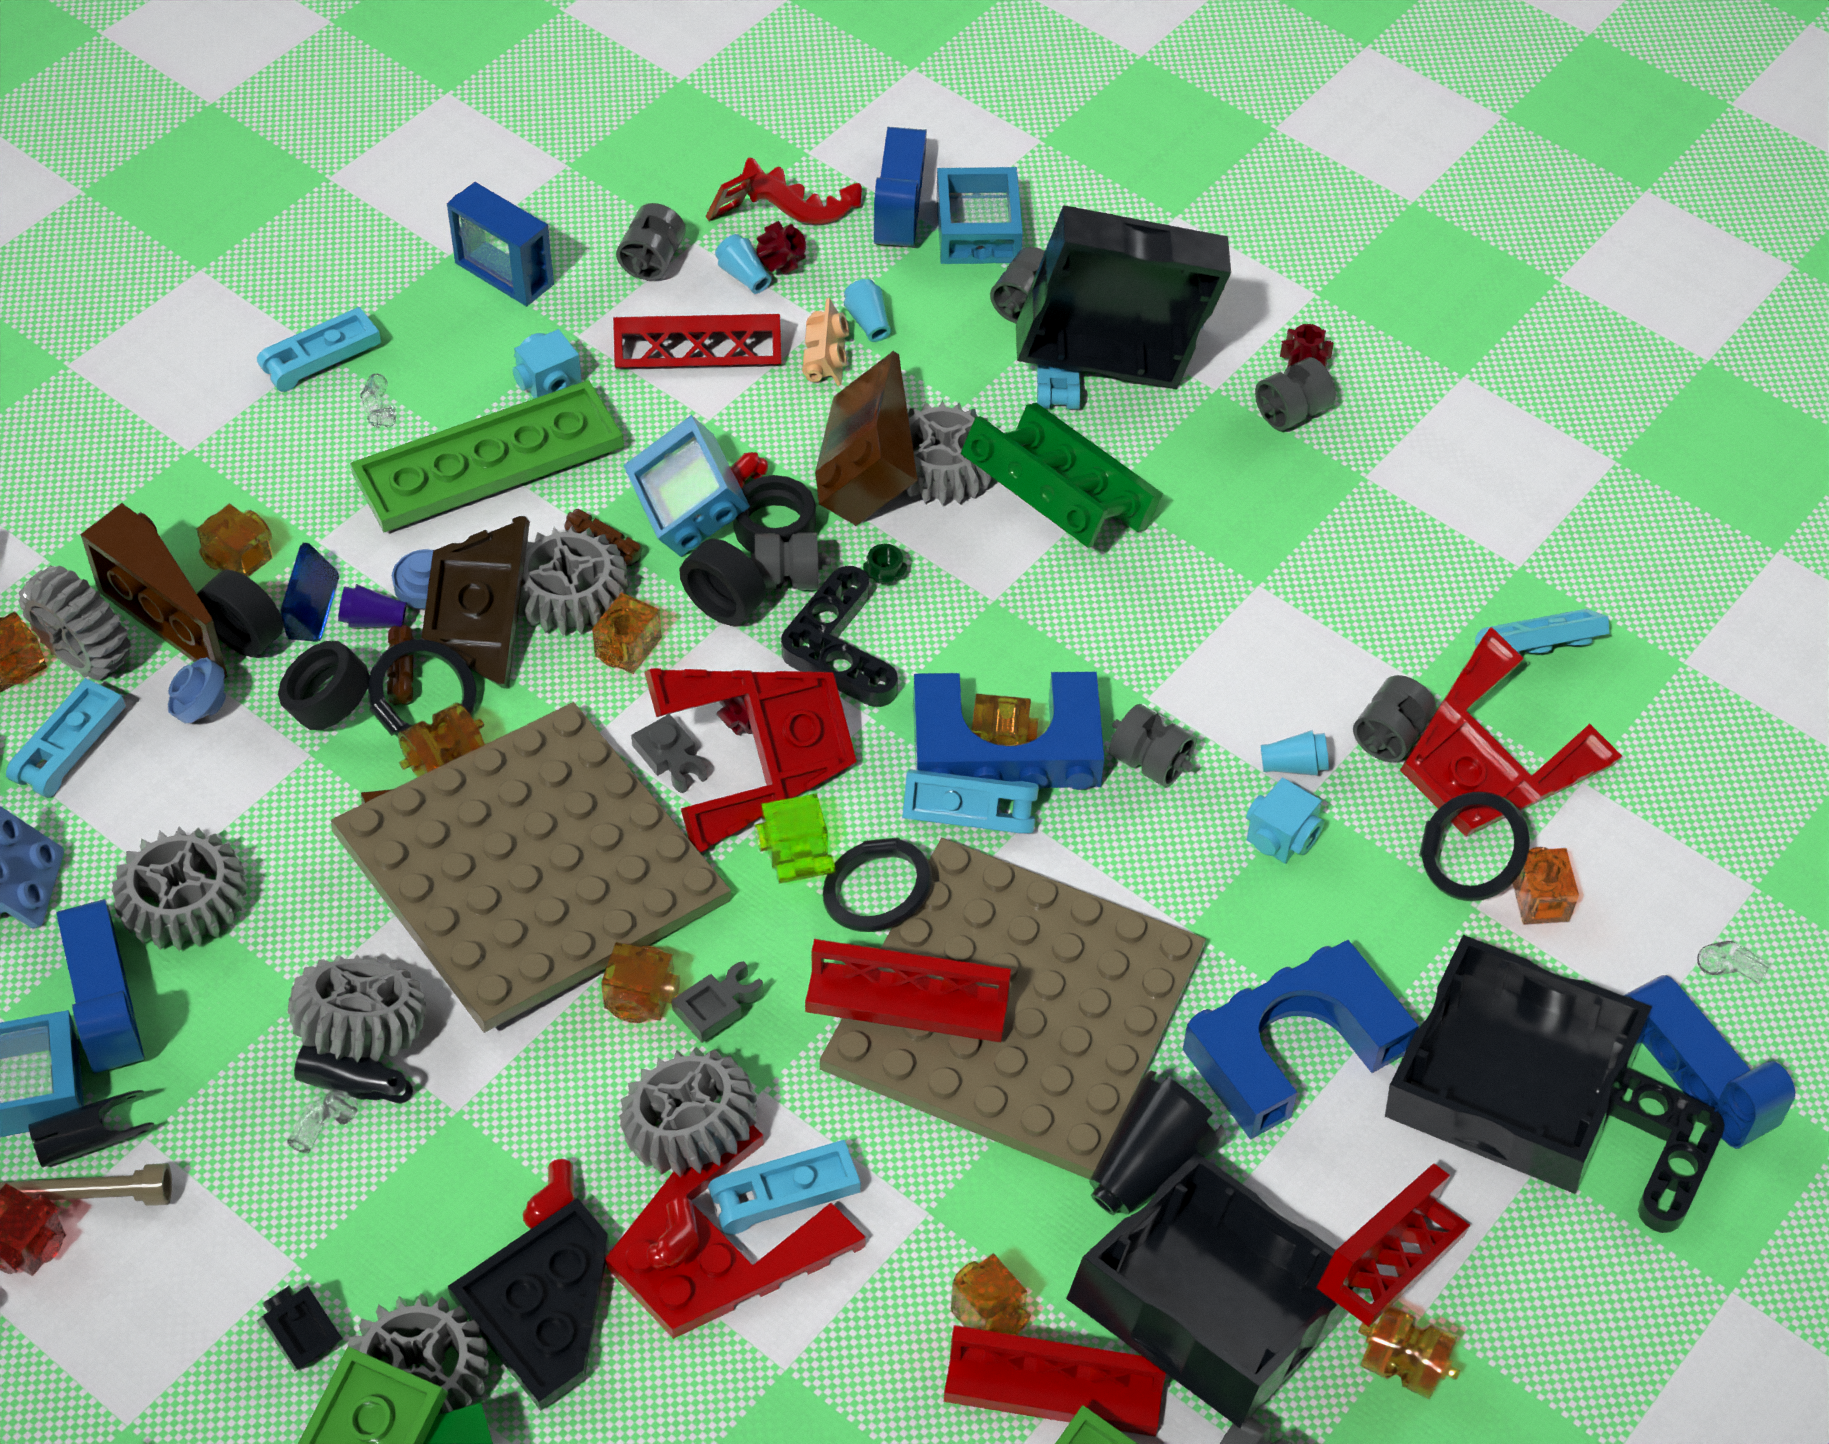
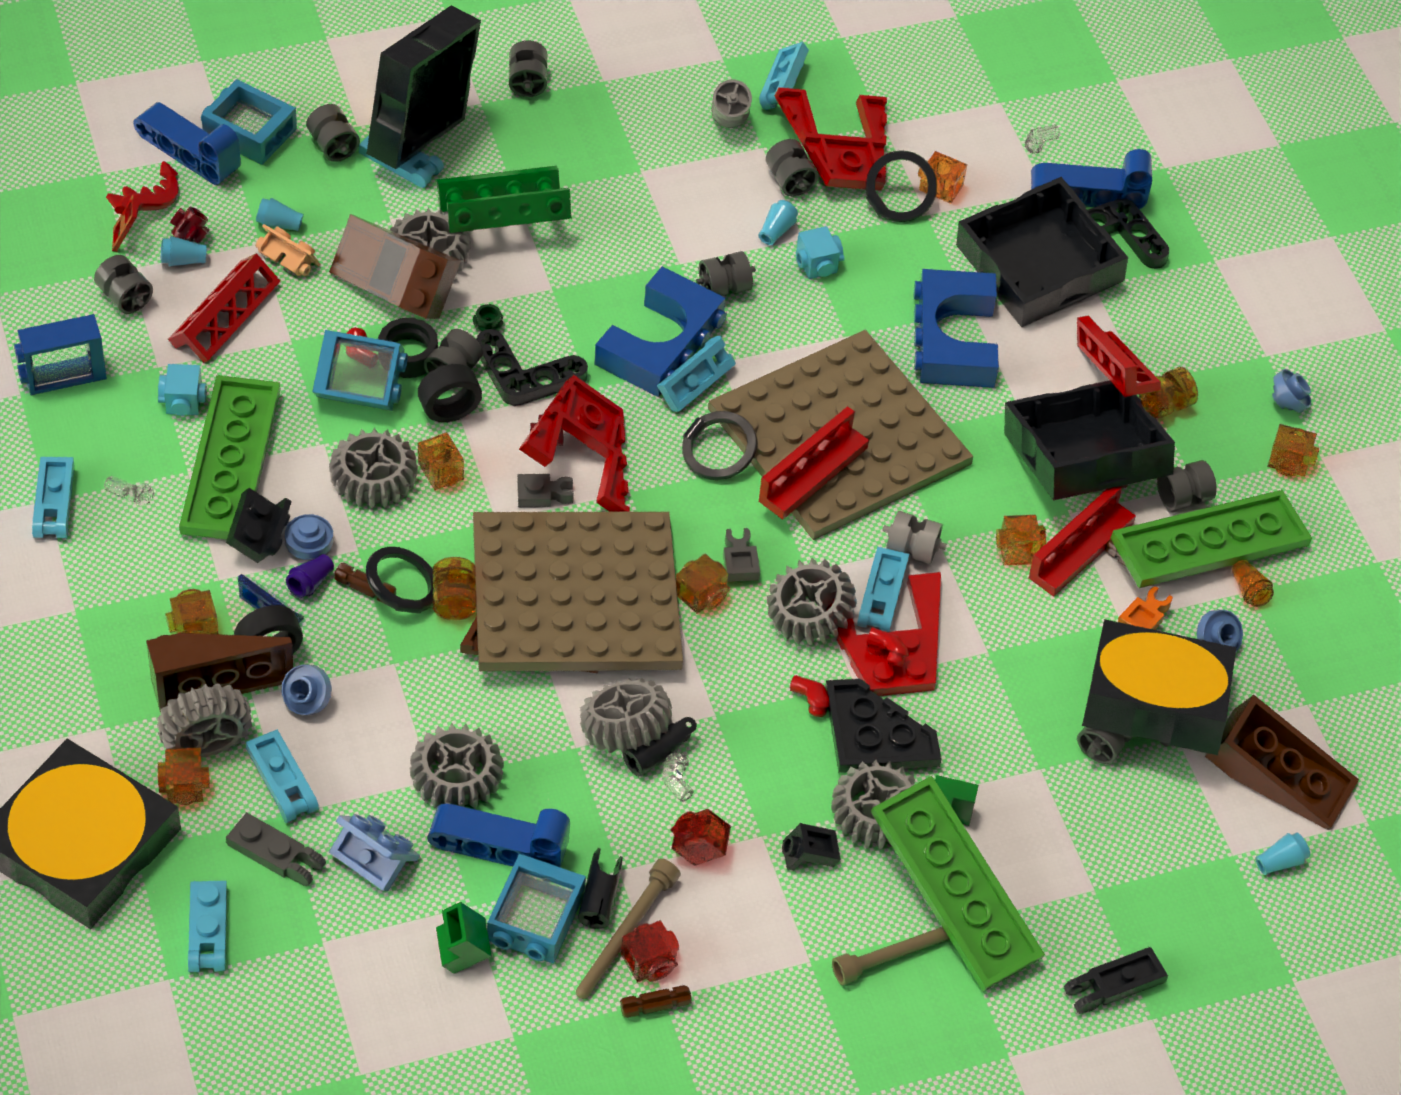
camera: 60 degrees left, 0 degrees up
(221, 1187) = (700, 836): none -> clear red brick
(339, 695) = (340, 611): black tyre -> none
(397, 521) = (258, 525): none -> black bracket
(477, 598) = (360, 512): dark brown wing -> none
(628, 548) = (328, 442): reddish brown axle -> none
(795, 838) = (656, 461): clear neon green brick -> none
(892, 1173) = (915, 537): none -> light grey wheel
(1004, 720) = (657, 325): clear orange brick -> none
(1150, 1143) = (980, 418): black cone -> none
(1306, 342) = (495, 44): dark red gear -> none
(1429, 601) = (731, 103): none -> light grey wheel

